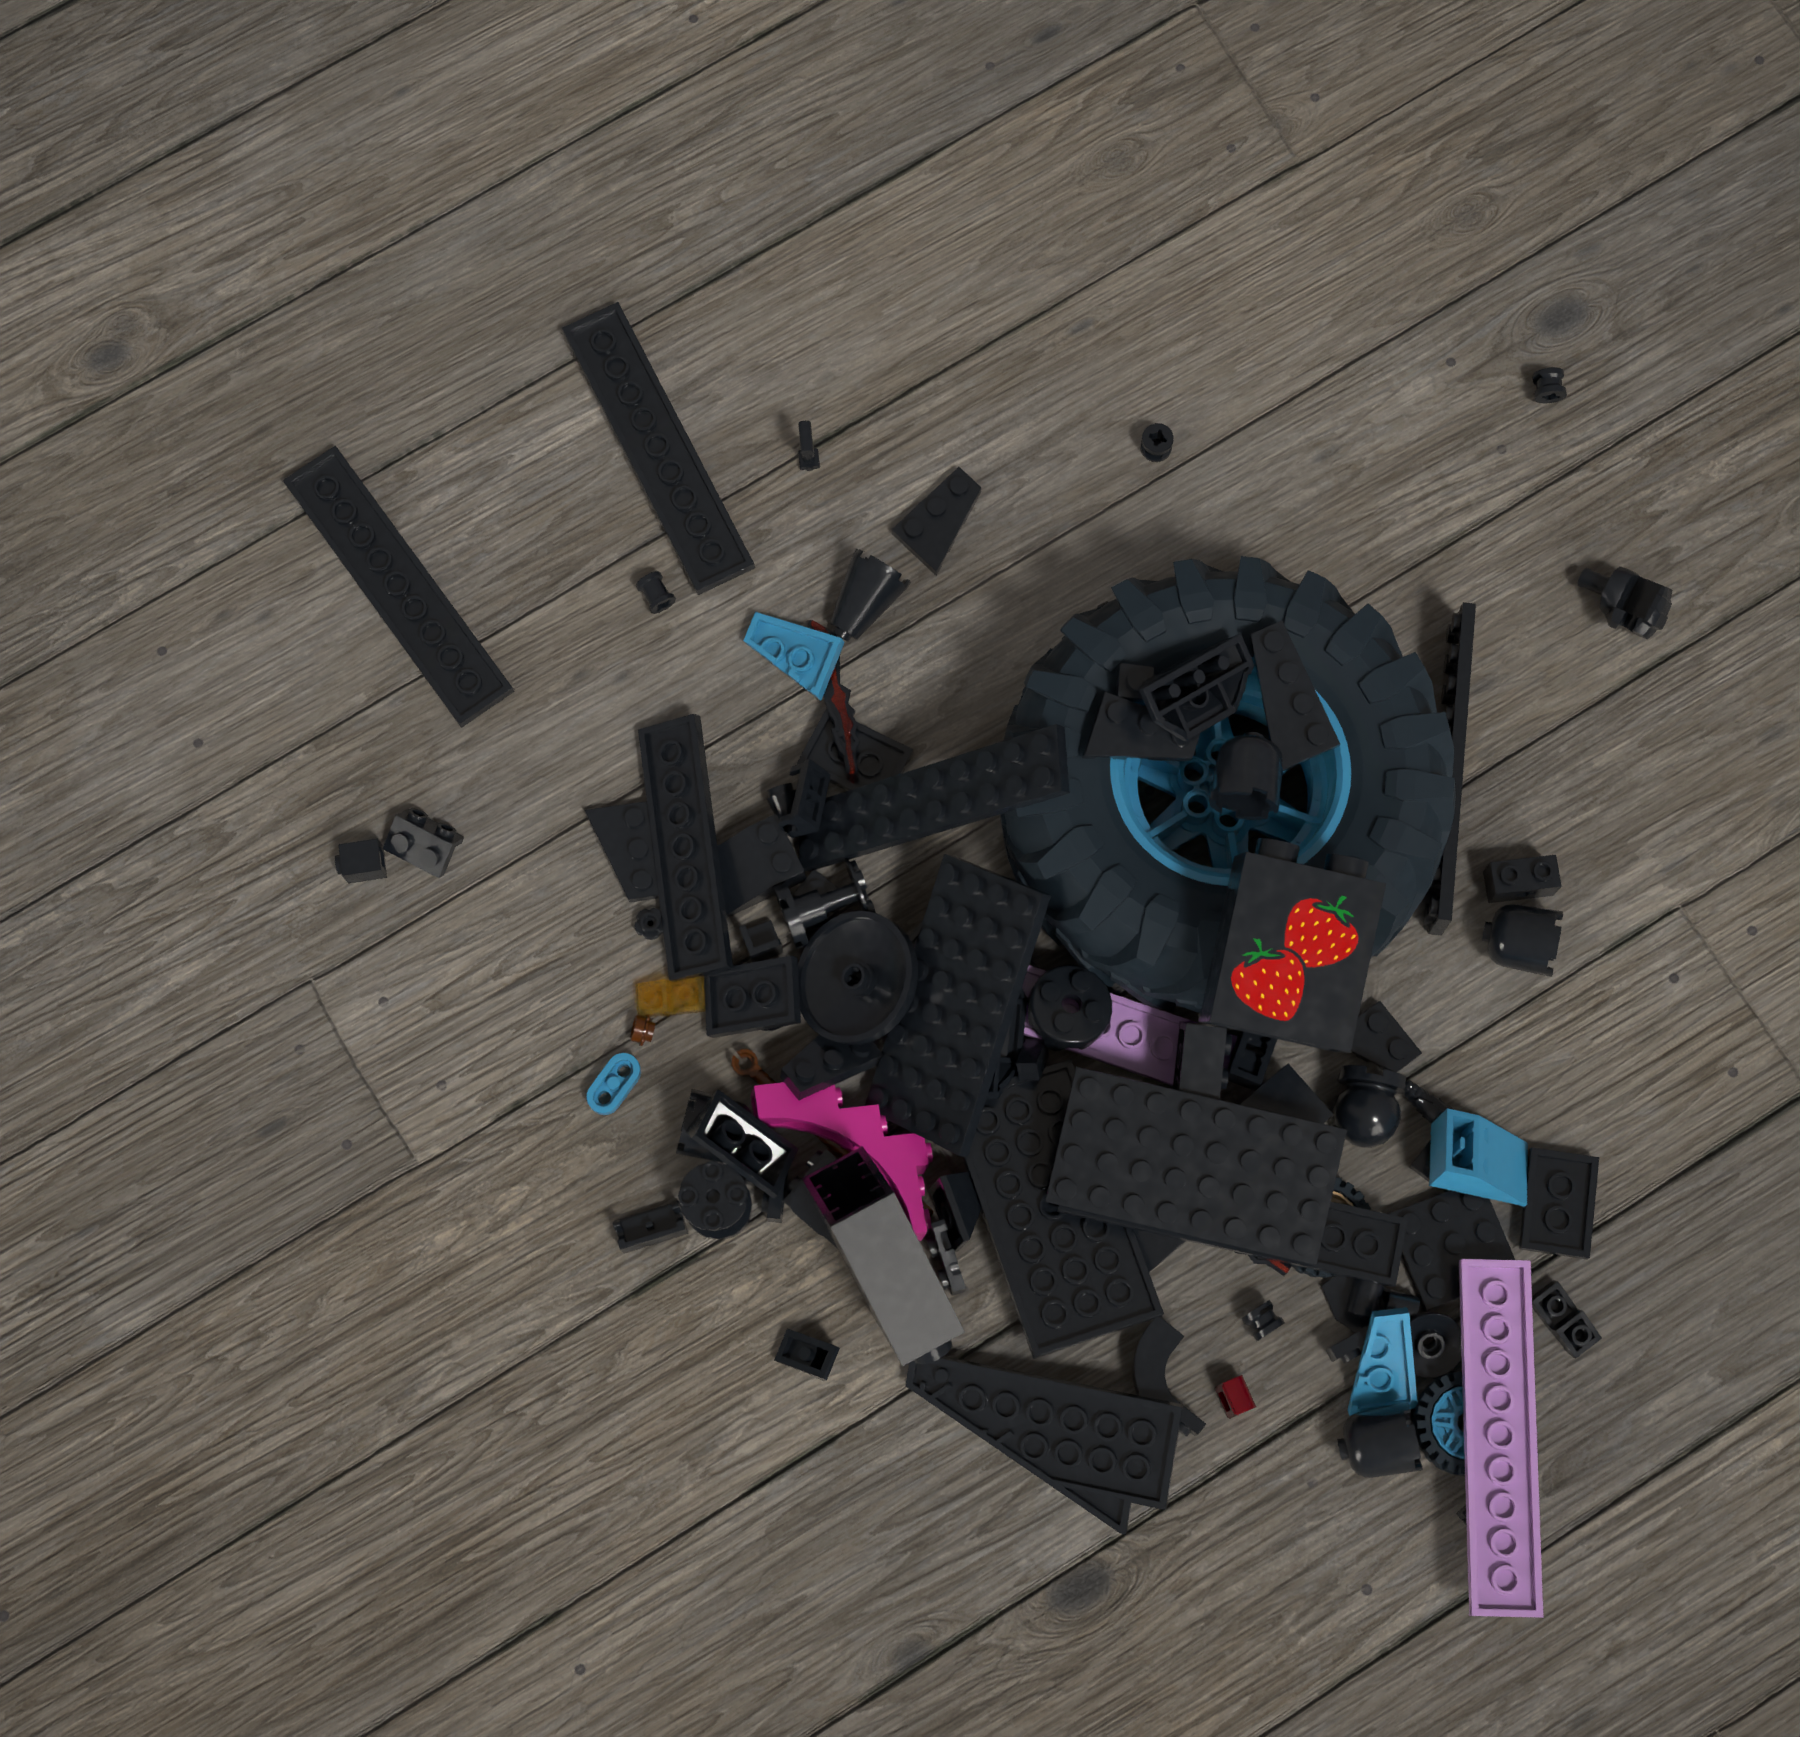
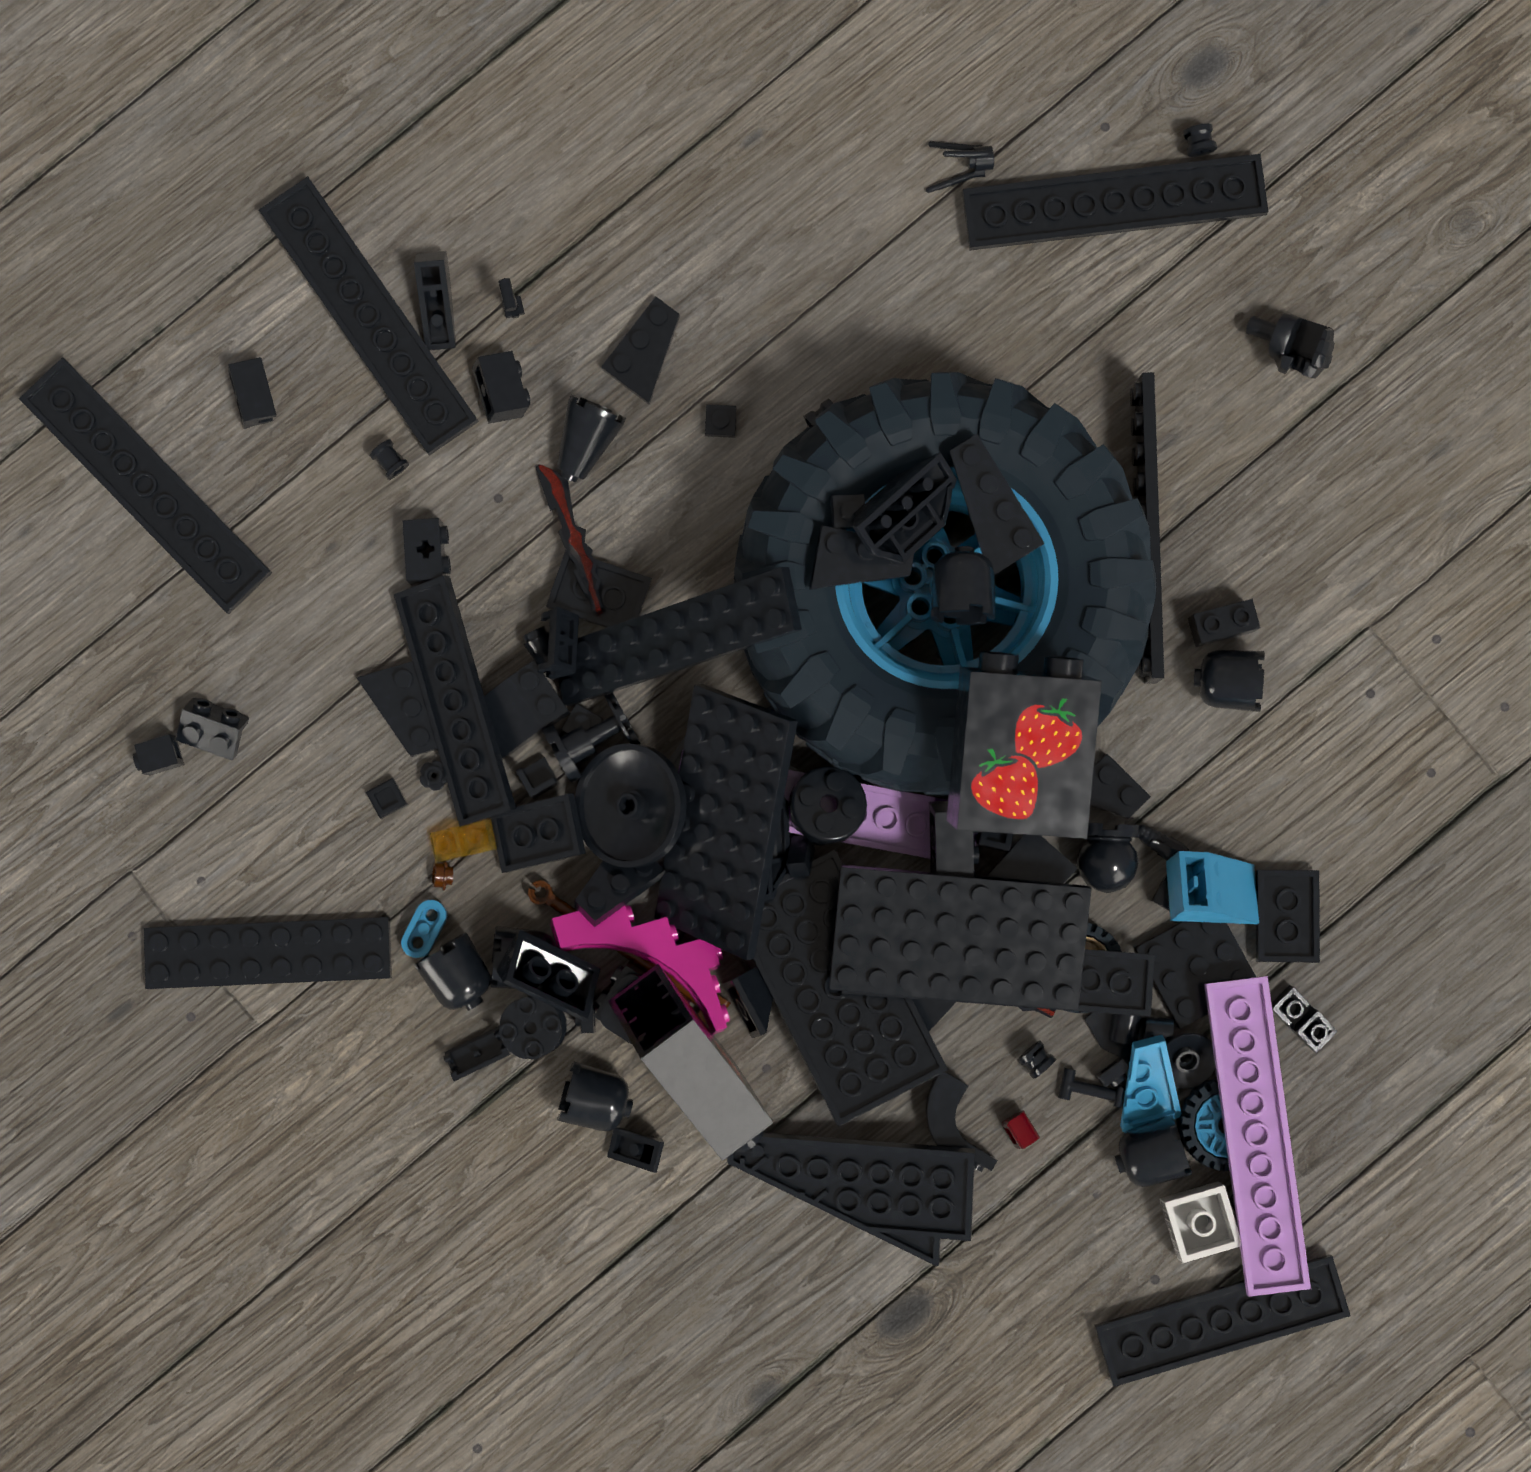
camera: 10 degrees left, 10 degrees up
(441, 1087) = (267, 953): none -> black plate
(524, 506) = (252, 392): none -> black hinge
(596, 941) = (387, 798): none -> black tile
(640, 1134) = (456, 974): none -> black cylinder
(673, 672) = (416, 536): none -> black brick
(729, 440) = (435, 299): none -> black slope
(770, 1291) = (594, 1098): none -> black cylinder
(784, 534) = (501, 386): none -> black brick
(796, 650) = (529, 498): dark azure wing -> none
(940, 1246) = (752, 1059): black wing -> none
(1009, 601) = (720, 421): none -> black plate
(1155, 450) = (838, 253): black wheel -> none
(1296, 1355) = (1071, 1085): none -> black piece
(1314, 373) = (978, 158): none -> black plant
(1426, 1527) = (1200, 1222): none -> white brick
(1433, 1648) = (1216, 1324): none -> black plate
(1453, 435) = (1115, 202): none -> black plate

